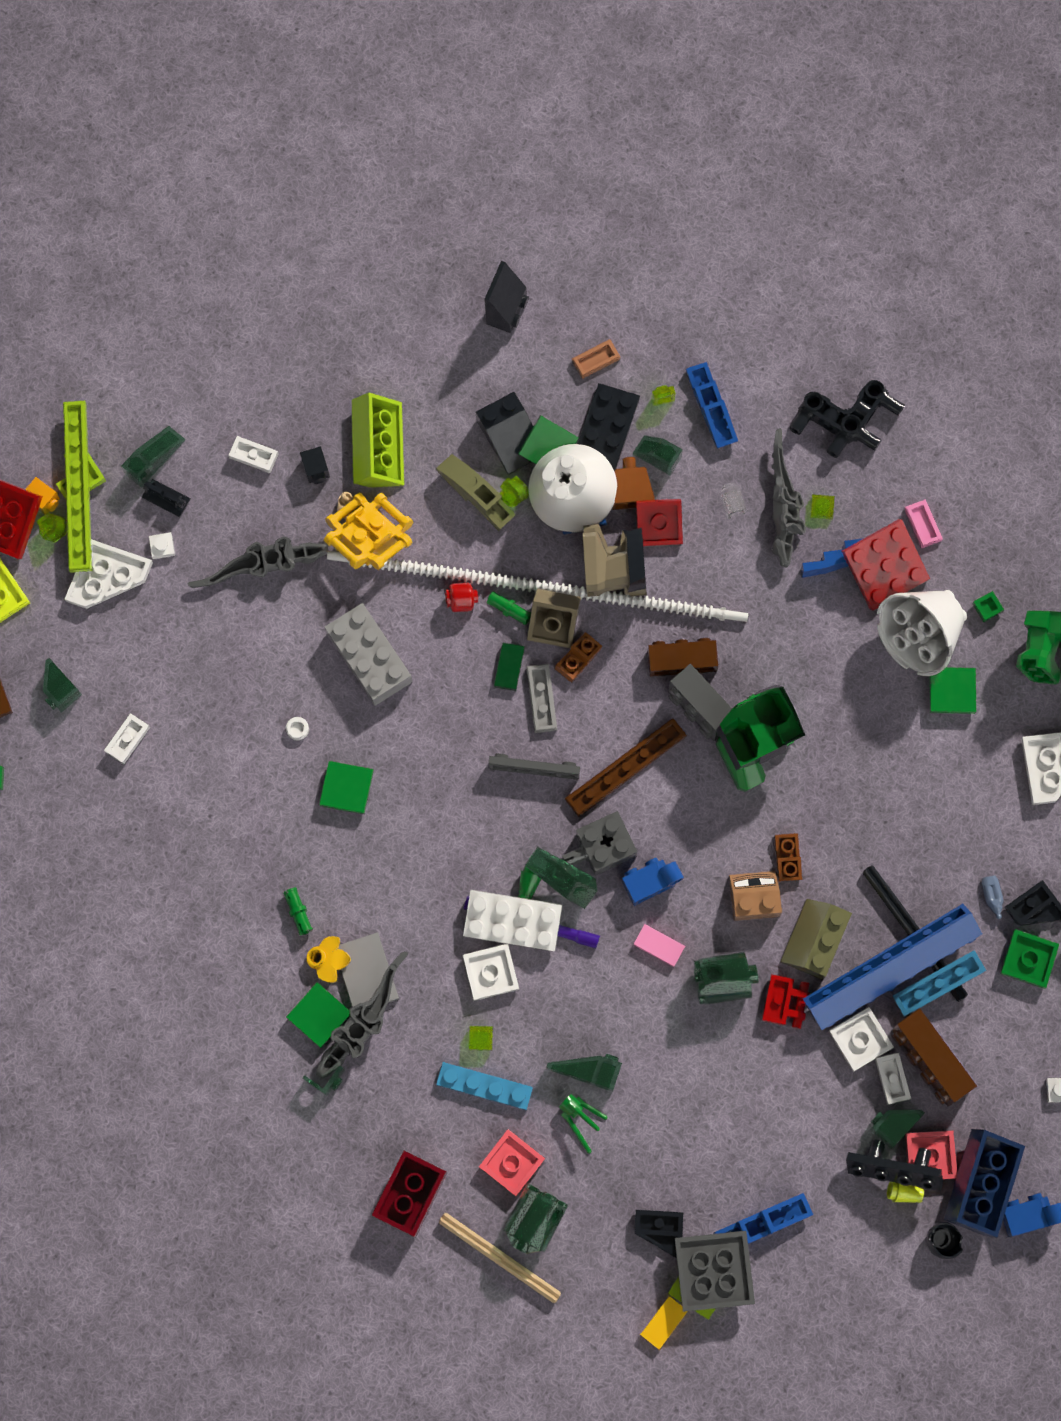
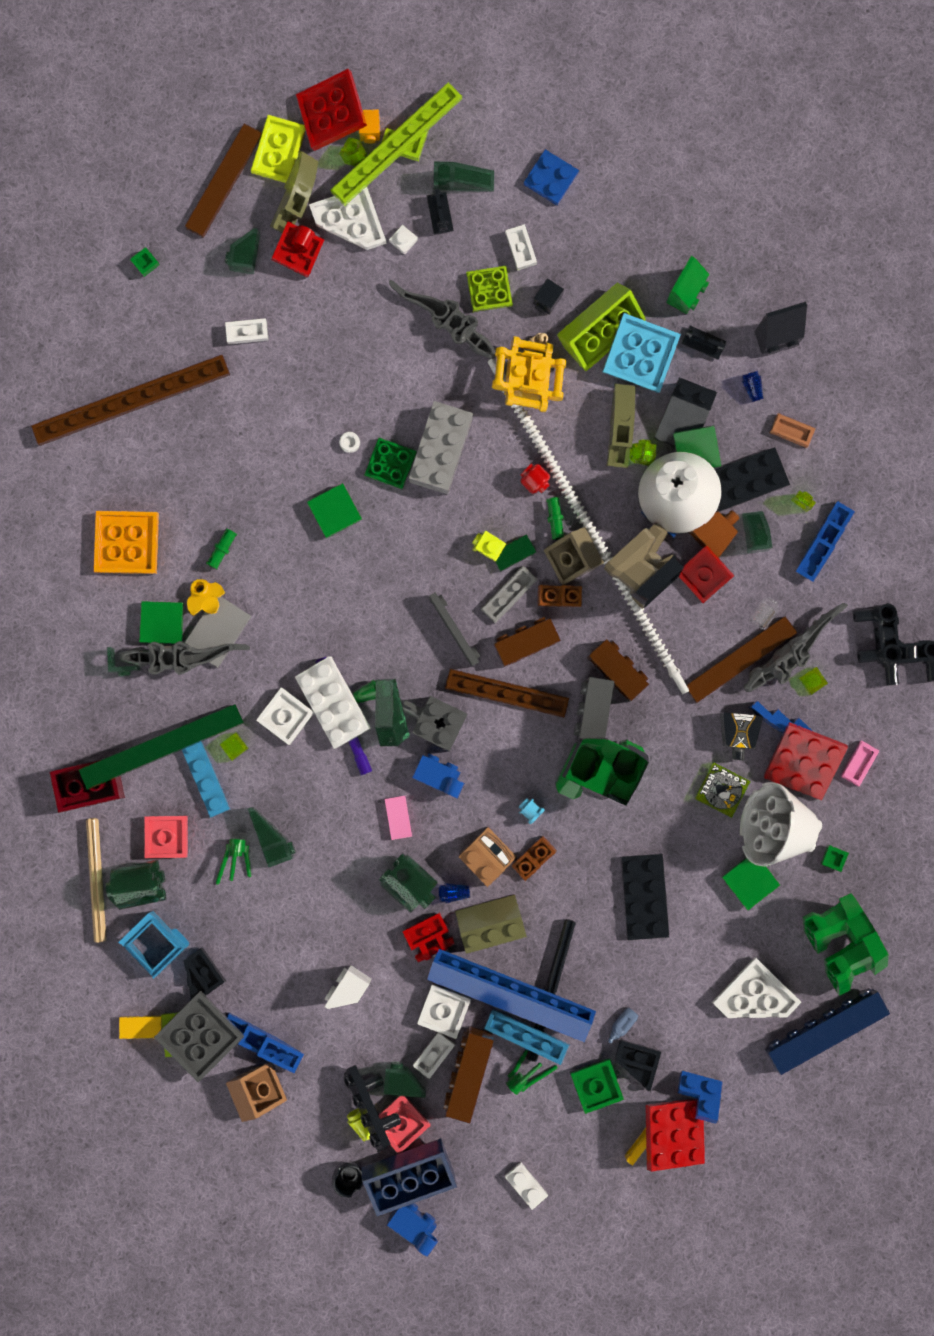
camera: 45 degrees right, 10 degrees up
(46, 598) = (297, 193): none -> olive slope
(94, 638) = (297, 249): none -> red plate
(100, 887) = (130, 400): none -> reddish brown plate
(215, 384) = (551, 177): none -> blue plate
(222, 990) = (126, 542): none -> light orange plate
(265, 508) = (489, 289): none -> lime tile
(345, 708) = (390, 463): none -> green tile
(404, 345) = (688, 286): none -> green slope
(428, 427) = (641, 353): none -> medium azure plate
(429, 1099) = (160, 747): none -> dark green tile
(461, 370) = (704, 342): none -> black hinge
(485, 681) = (488, 545): none -> neon yellow bracket
(531, 359) = (753, 385): none -> clear blue cone
(581, 1274) = (173, 936): none -> dark azure piece
(595, 714) = (526, 641): none -> reddish brown brick
(744, 826) = (530, 810): none -> medium azure brick
(756, 551) = (740, 659): none -> reddish brown tile
(763, 949) = (453, 892): none -> clear blue cone
(776, 1103) = (349, 990): none -> white slope
(803, 1263) = (256, 1092): none -> medium nougat slope
(818, 599) = (740, 732): none -> torso
(855, 653) = (722, 790): none -> tile
(896, 789) = (645, 896): none -> black plate
(974, 1024) = (518, 1082): none -> green plant

